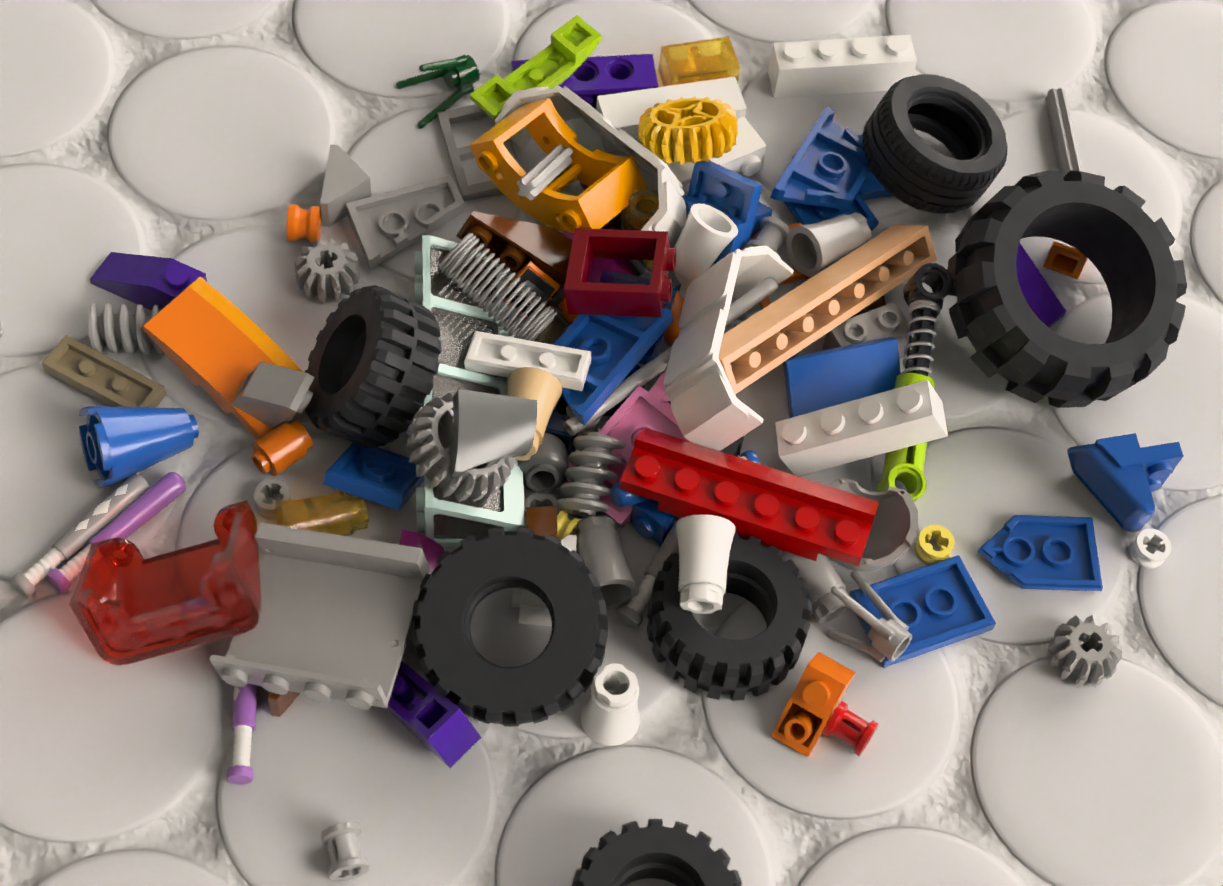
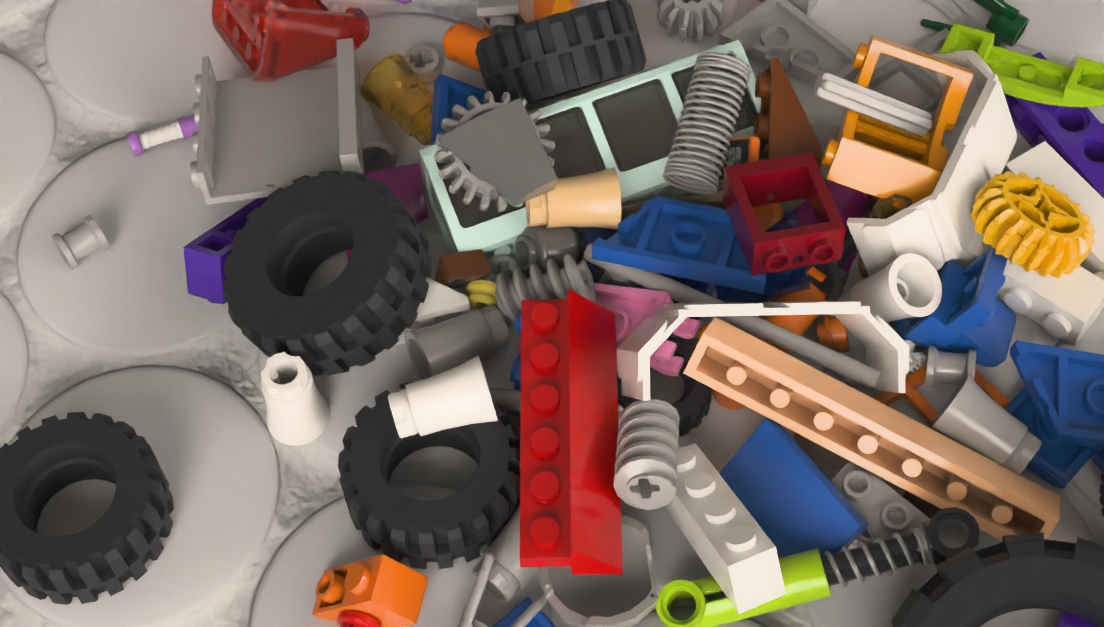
camera: 80 degrees right, 0 degrees up
(504, 354) = (640, 180): white tile -> none
(793, 450) = (647, 454): none -> light grey piece

